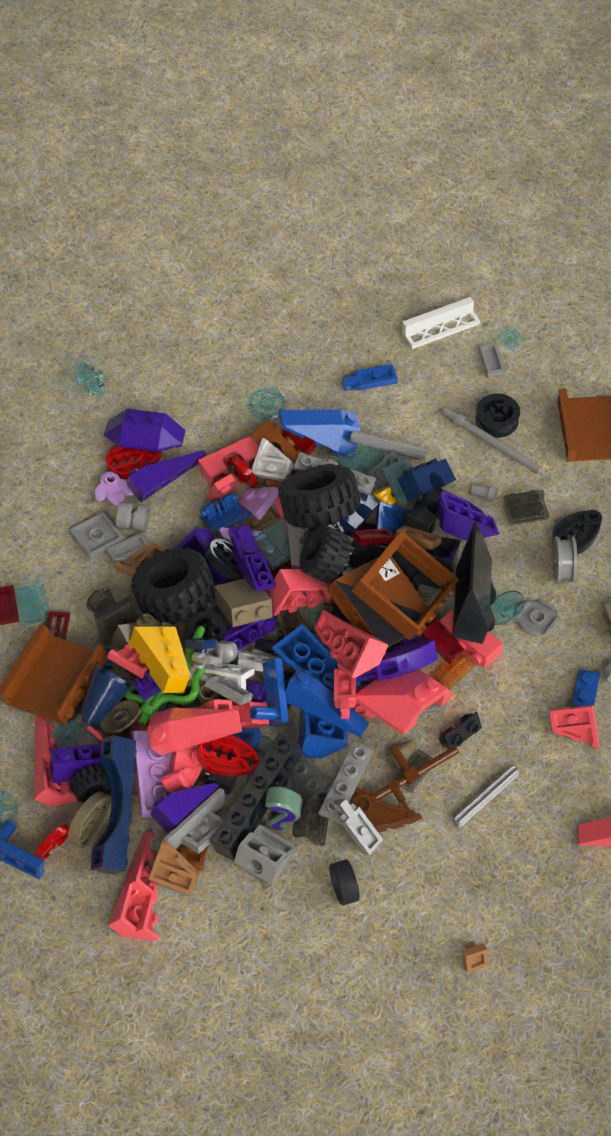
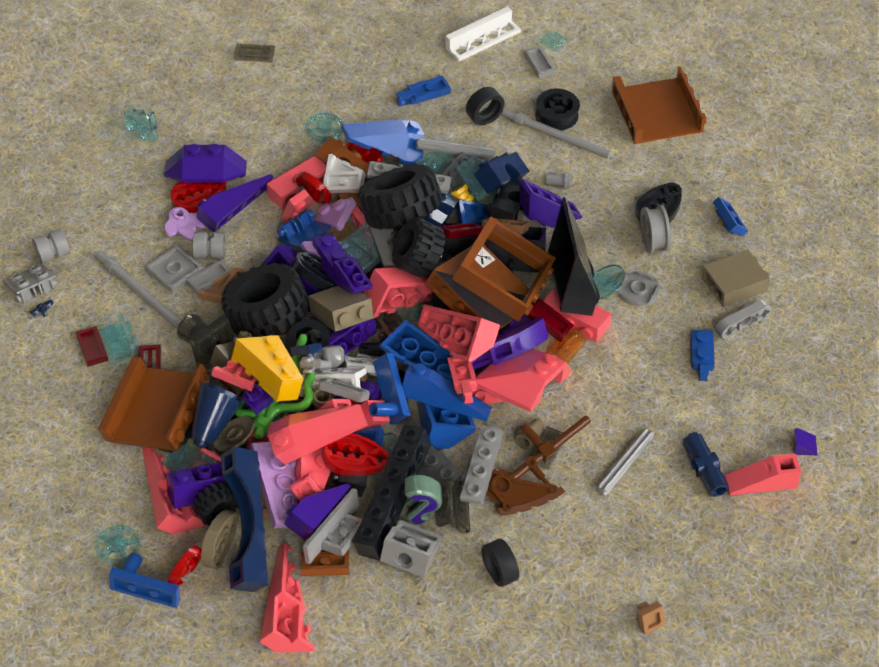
camera: 10 degrees left, 5 degrees down
(39, 525) = (113, 266): none -> light grey bar
(173, 869) = (318, 575): medium nougat wing -> none
(214, 314) = (254, 53): none -> clear smoke tile
(358, 826) = (502, 505): light grey hinge -> none
(422, 396) = (489, 114): none -> black tyre
(465, 728) = (587, 403): black hinge -> none
(525, 507) = (603, 188): clear smoke bracket -> none
(561, 810) = (705, 464): none -> dark blue piece
(576, 723) = (701, 379): coral wing -> none

